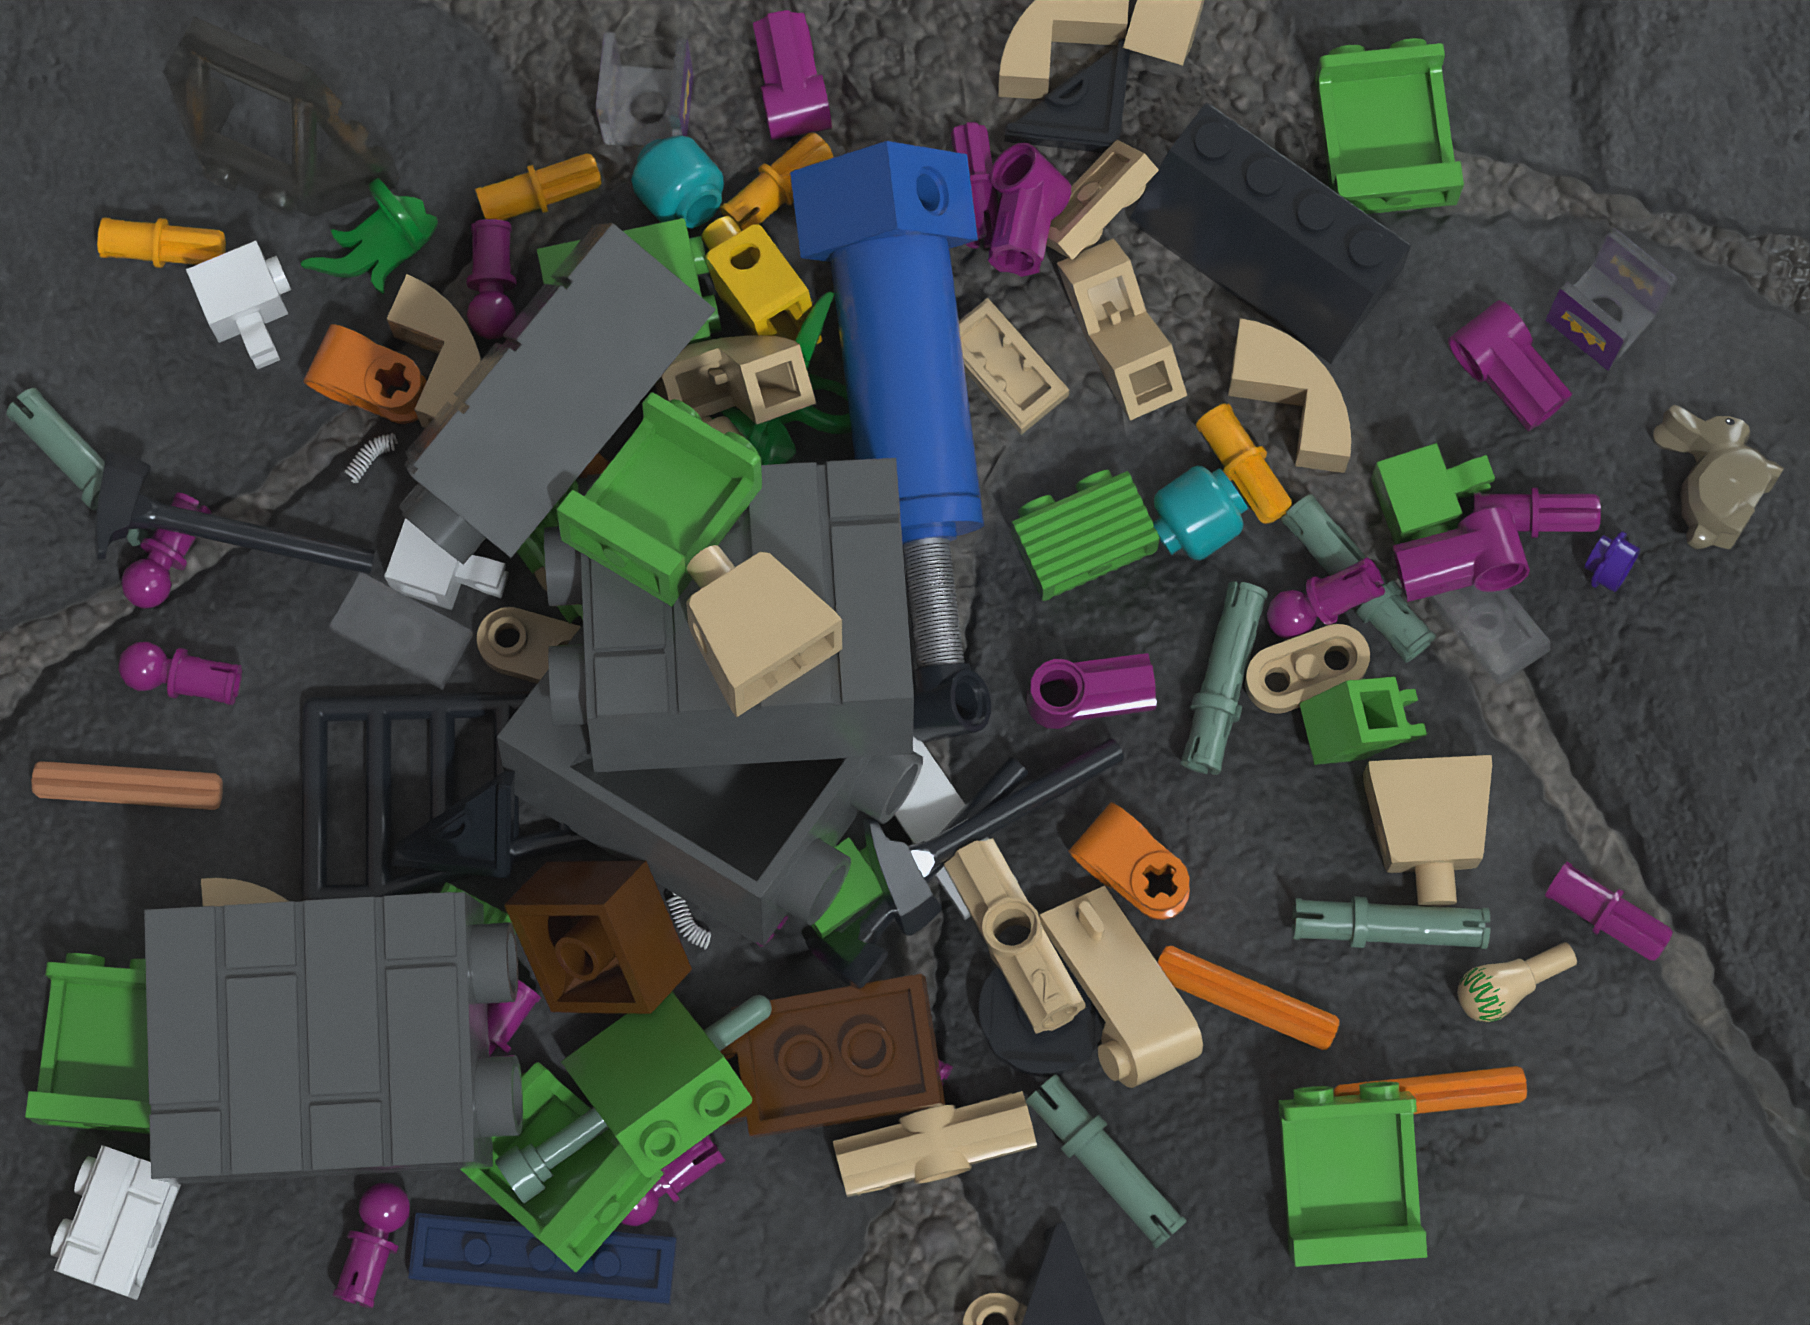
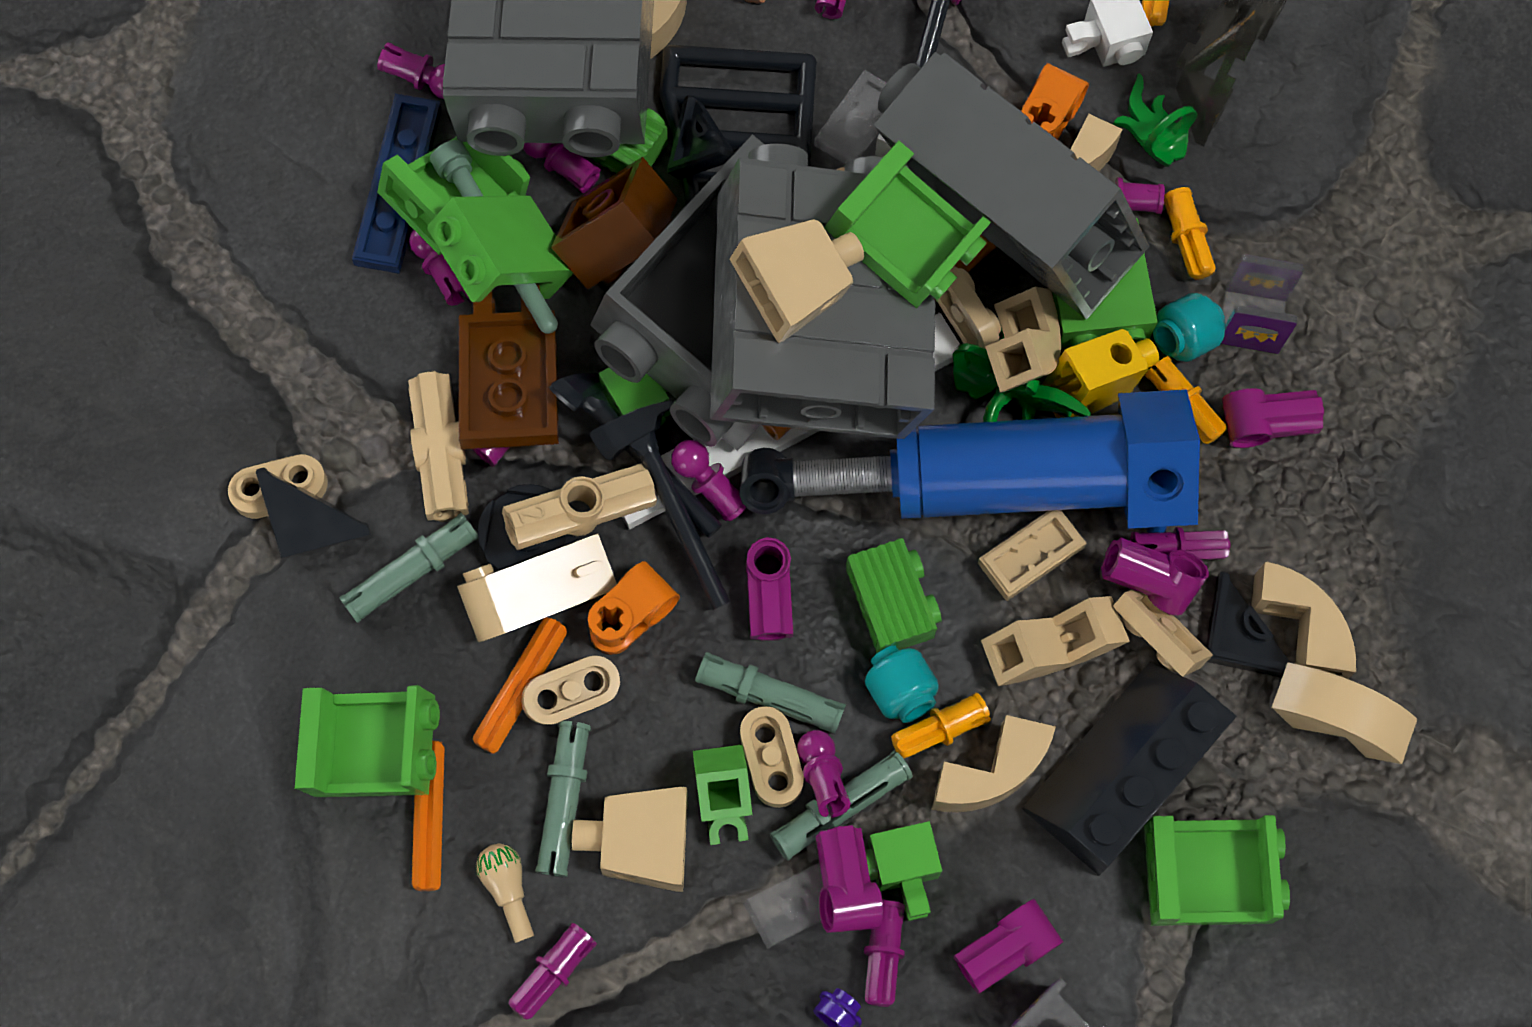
camera: 90 degrees right, 5 degrees down
(952, 778) = (692, 461): none -> magenta pin
(1255, 930) = (569, 690): none -> tan plate

